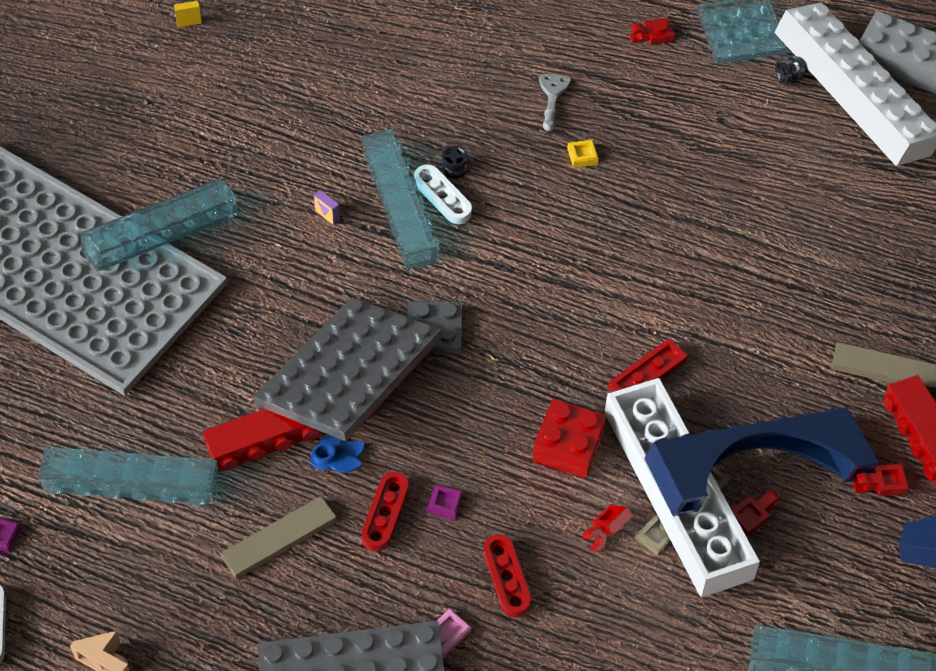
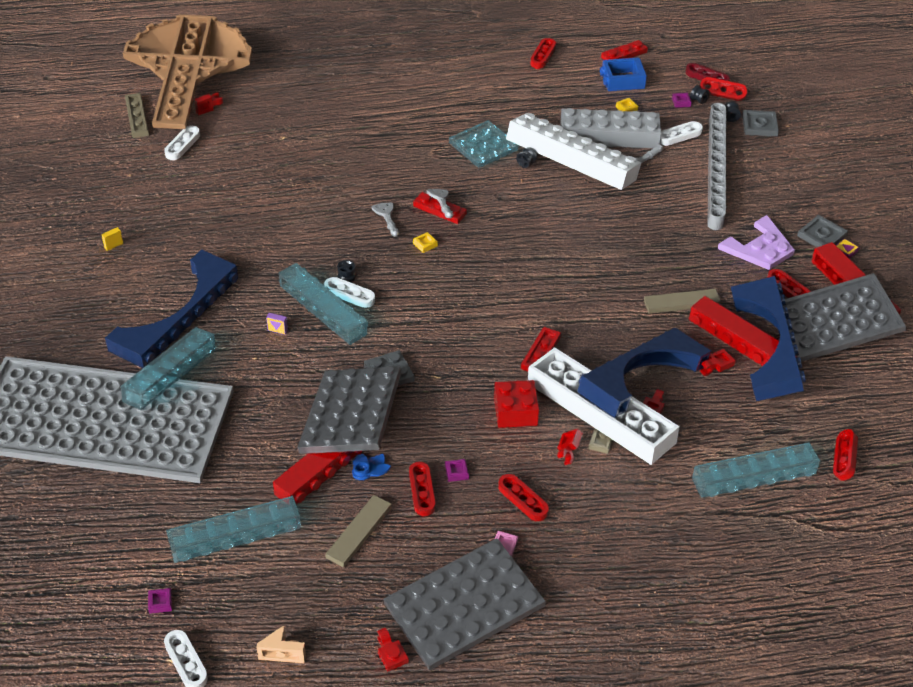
camera: 25 degrees left, 10 degrees down
(155, 176) = (144, 343): none -> dark blue arch
(630, 107) = (432, 205): none -> red plate
(636, 90) = (441, 195): none -> light grey piece
(655, 31) = (431, 160): red plate -> none

